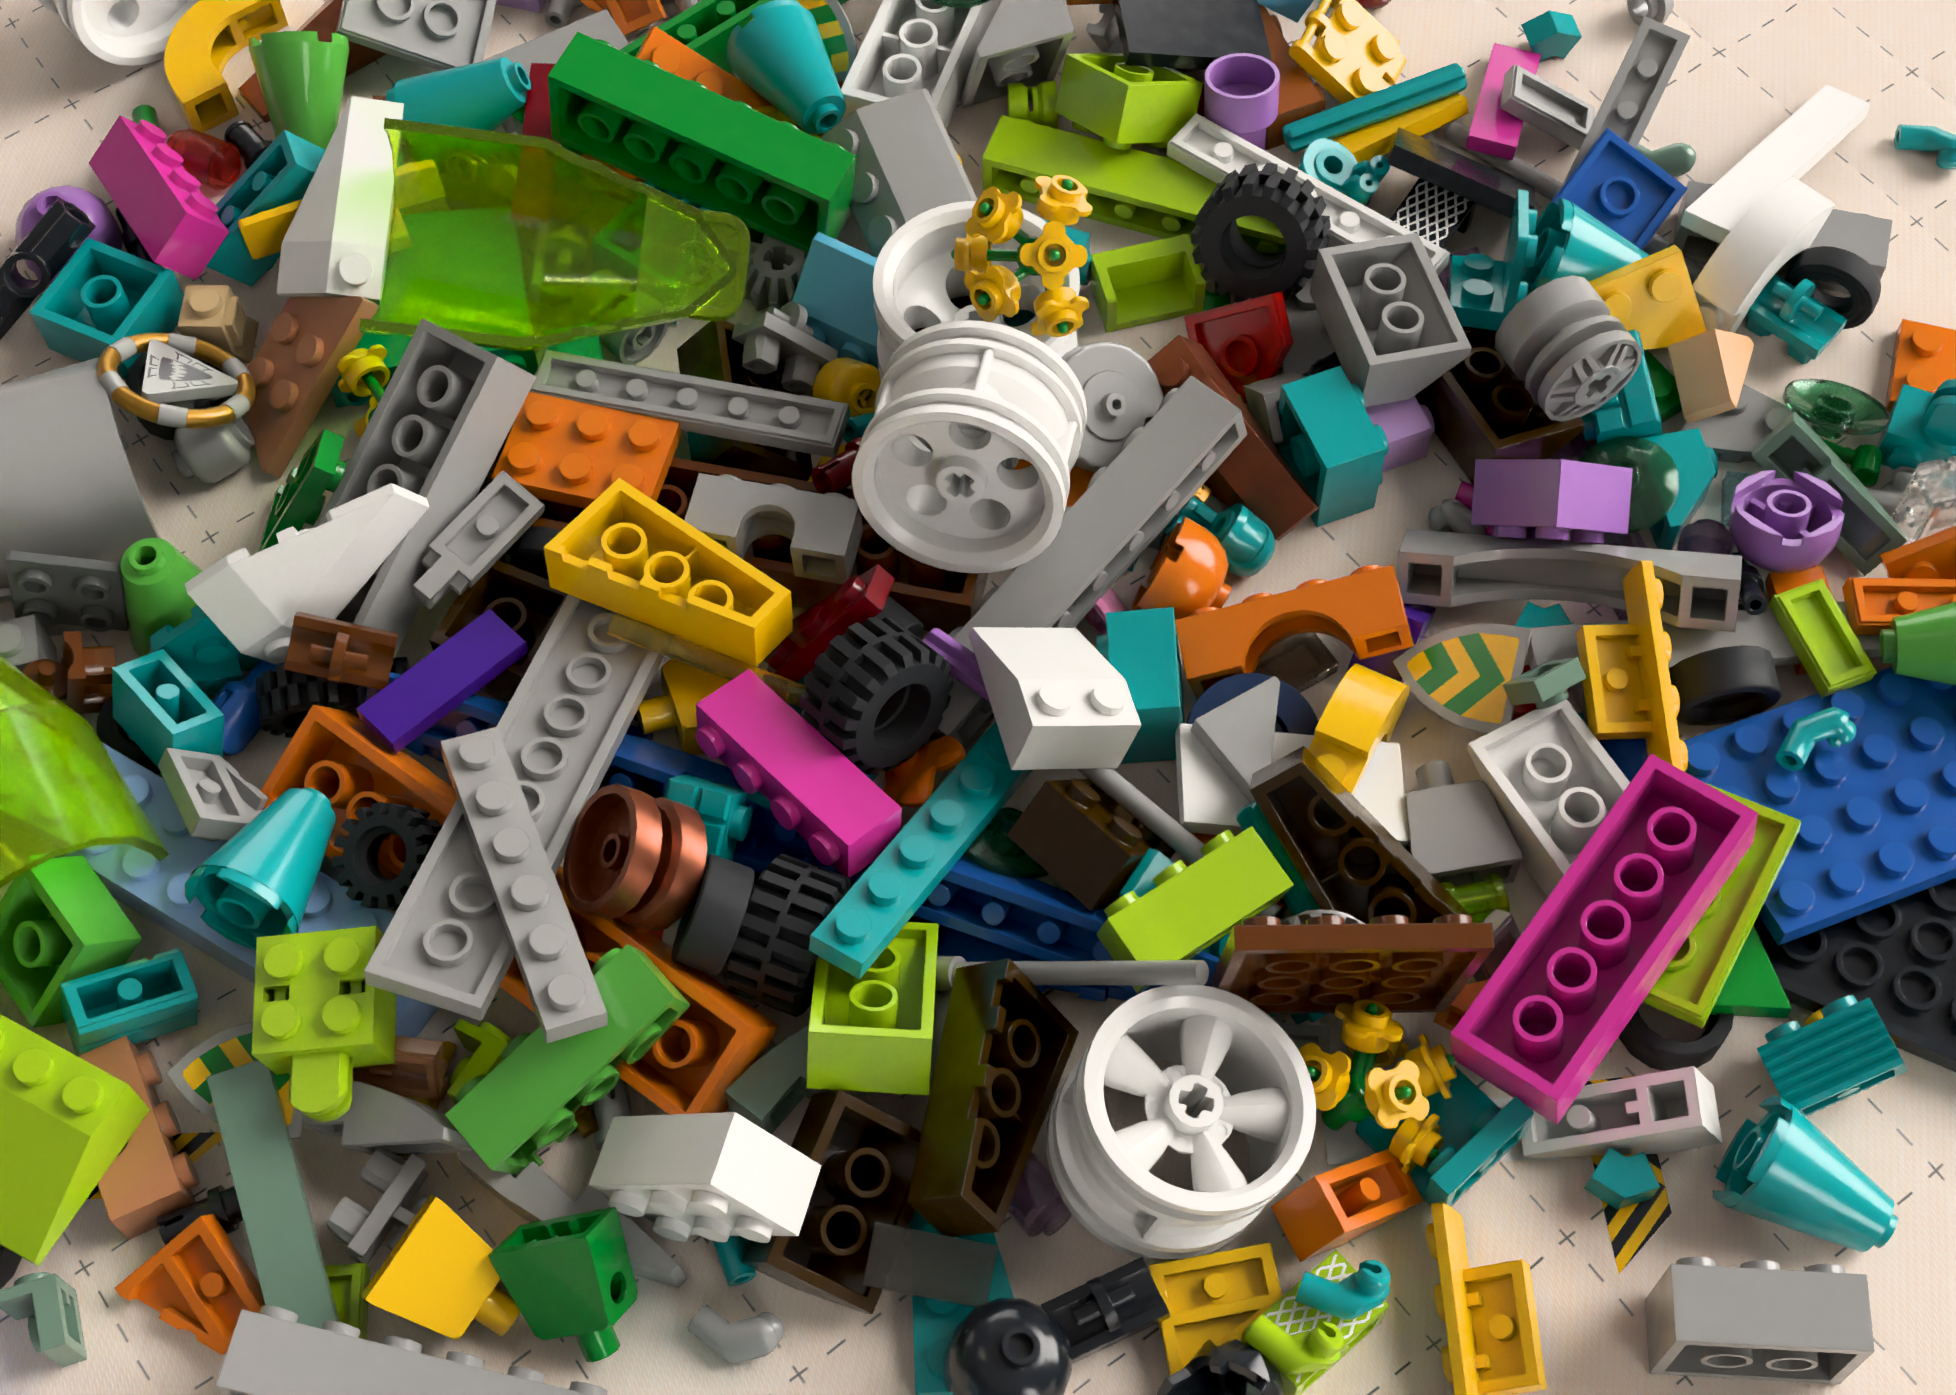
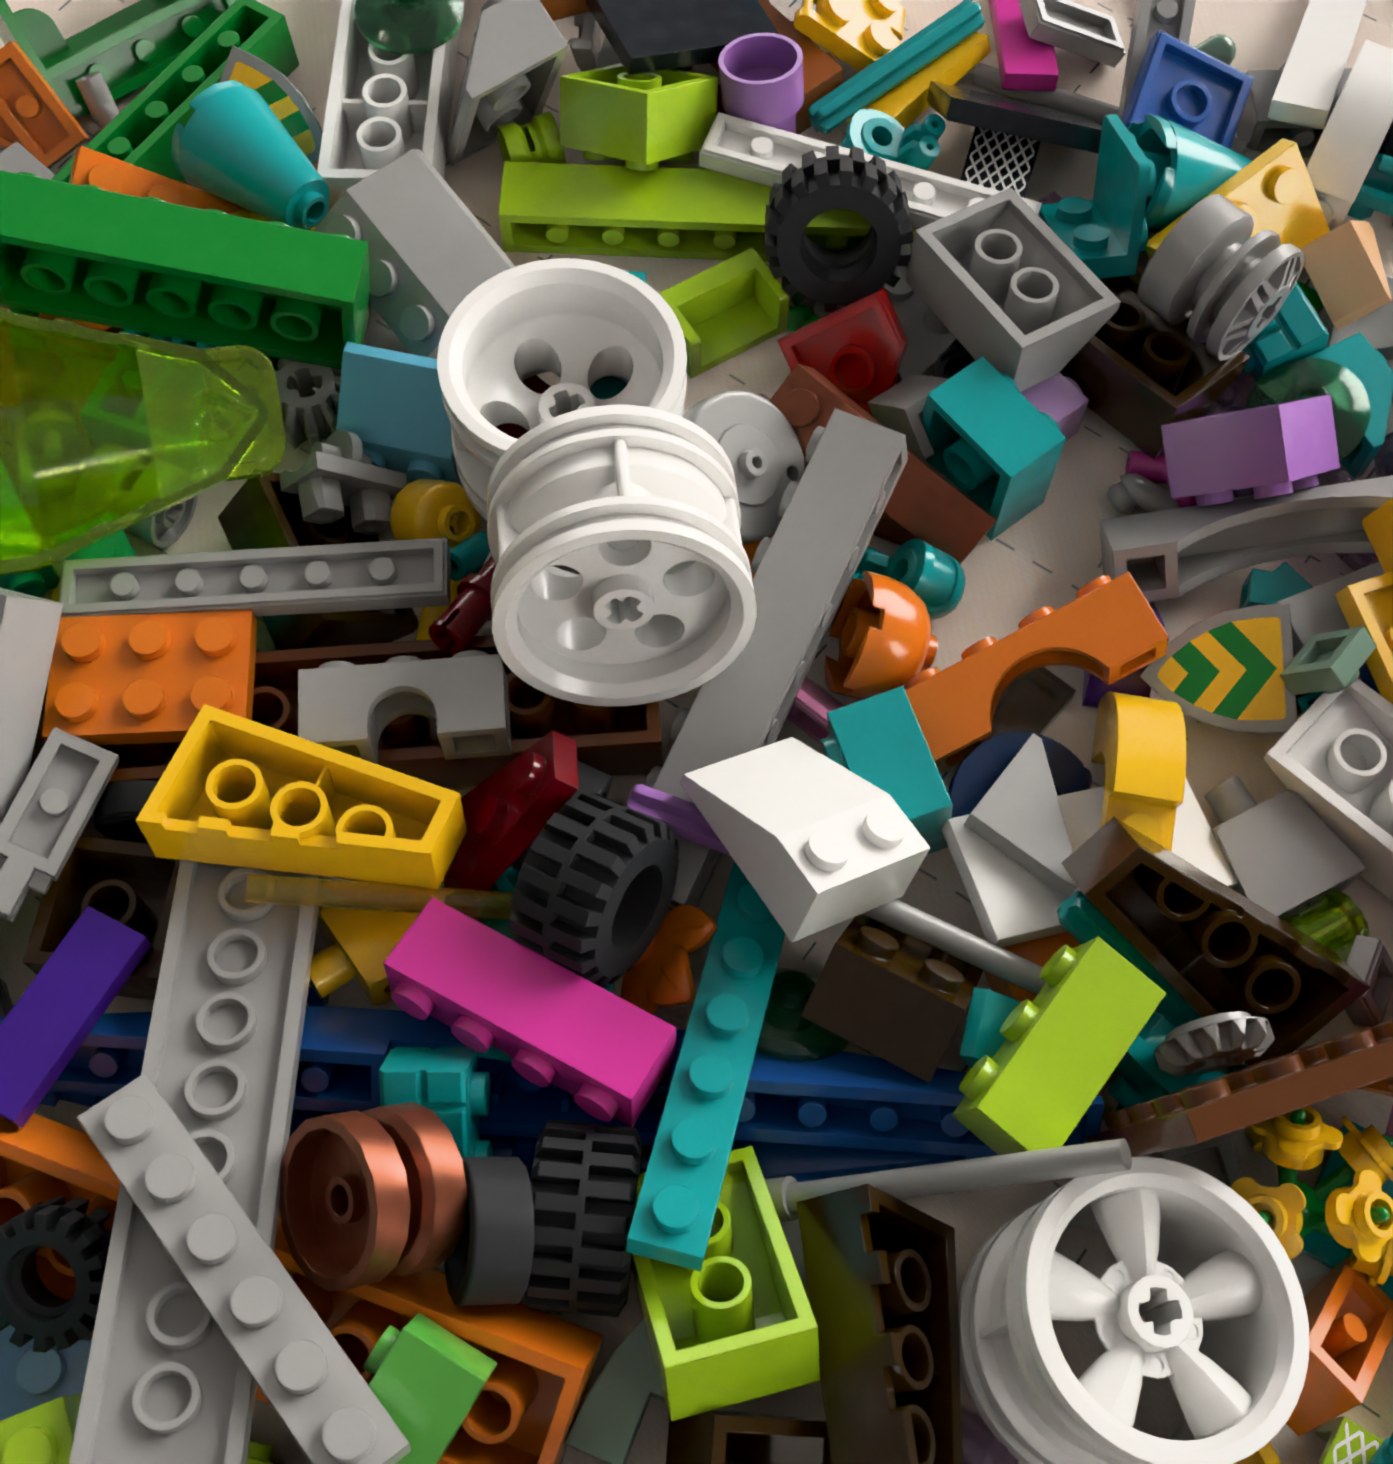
camera: 20 degrees left, 5 degrees up
(1052, 255) = (653, 307): yellow plant -> none

